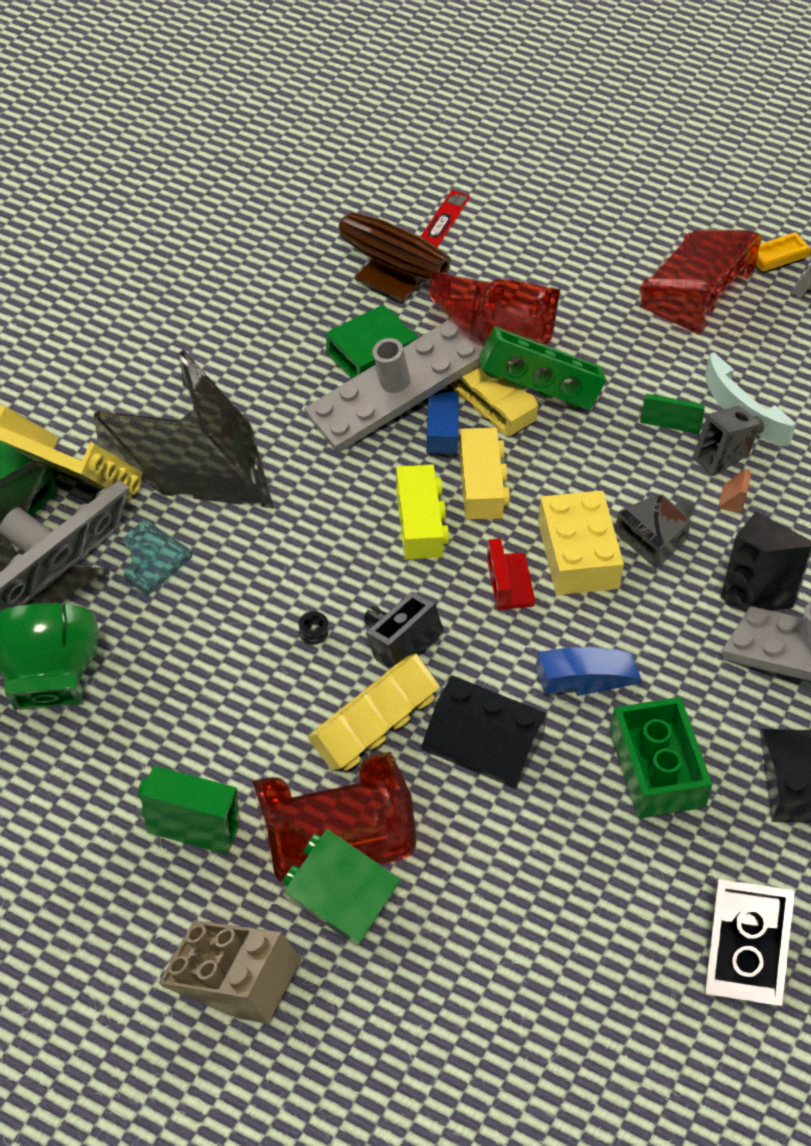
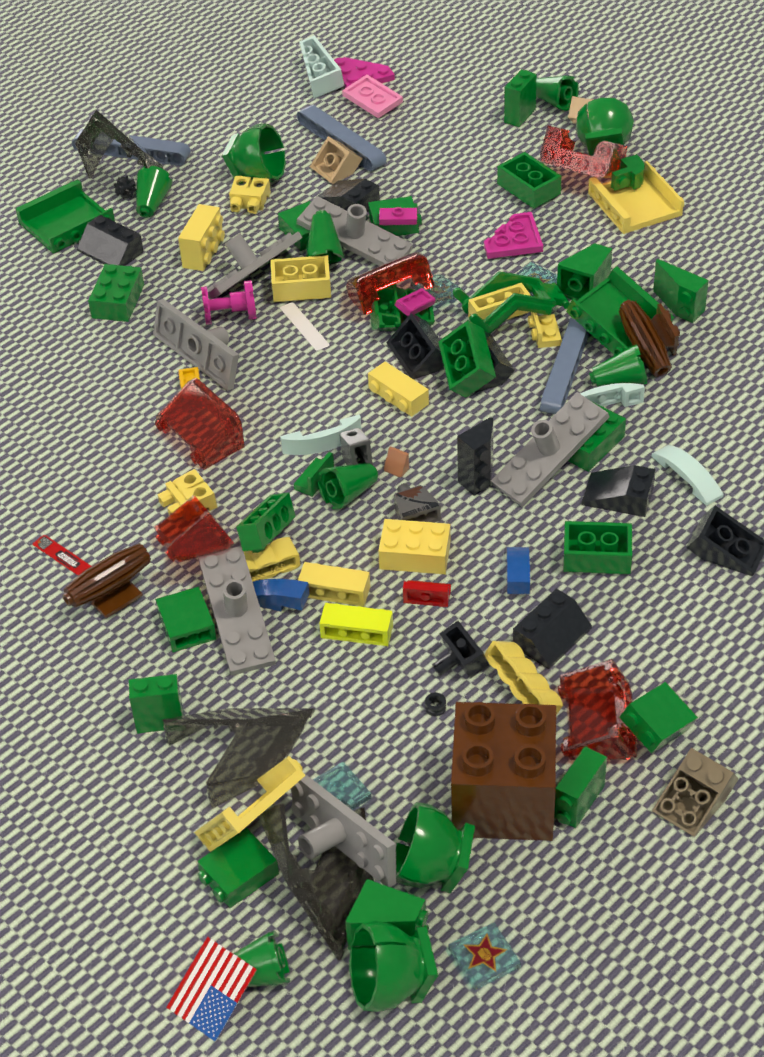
camera: 70 degrees left, 5 degrees down
(176, 696) = (504, 770): none -> reddish brown piece
(215, 342) = (154, 700): none -> green brick
(581, 297) = (183, 488): none -> light yellow hips
(666, 444) = (345, 483): none -> green cone

